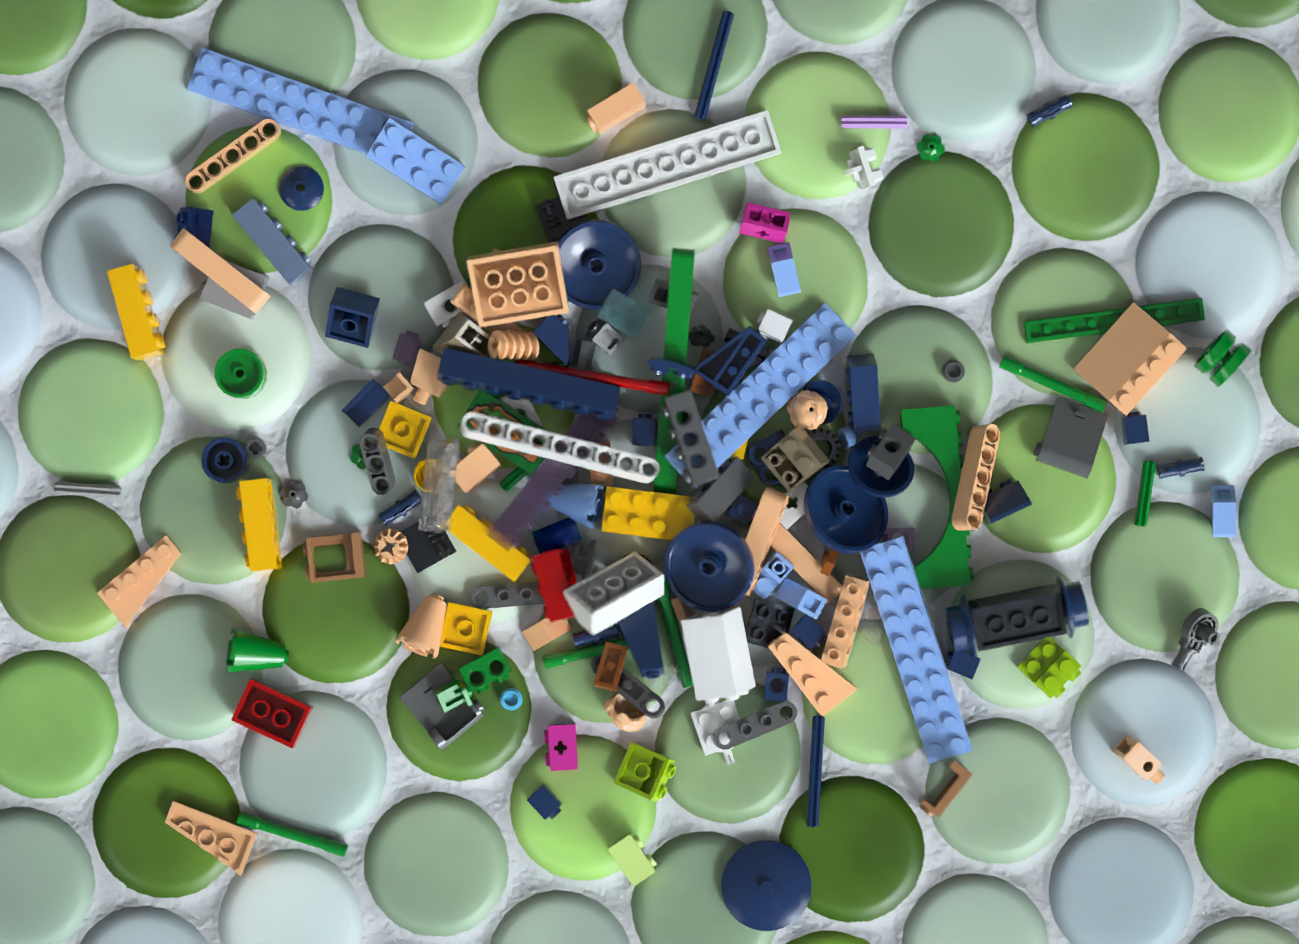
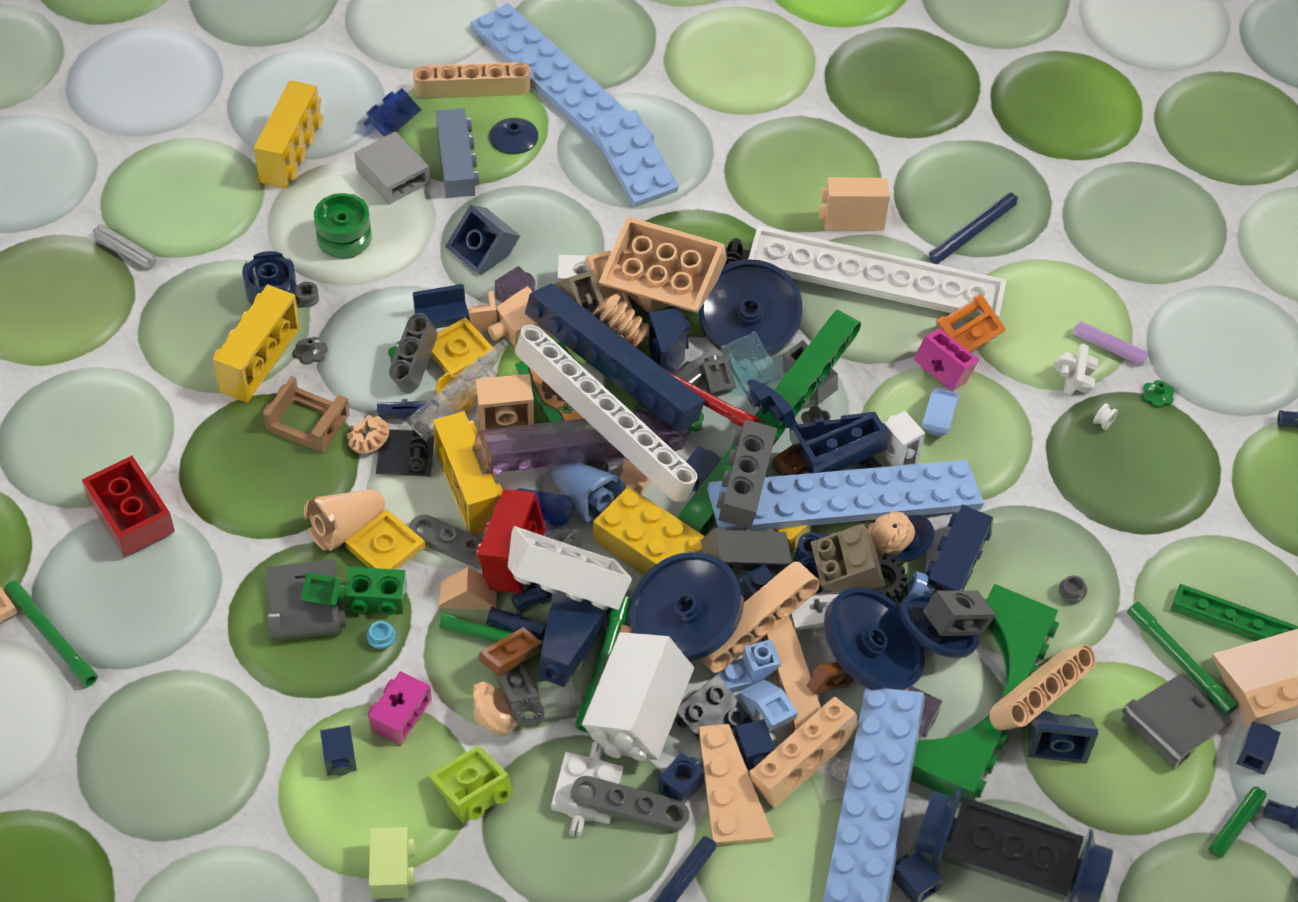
camera: 25 degrees right, 35 degrees down
(134, 585) = (98, 338): light nougat wing -> none
(219, 270) = (390, 136): light nougat beam -> none
(254, 652) = (155, 443): green cone -> none
(771, 180) = (977, 331): none -> orange plate
(904, 200) = (1105, 416): none -> white bush

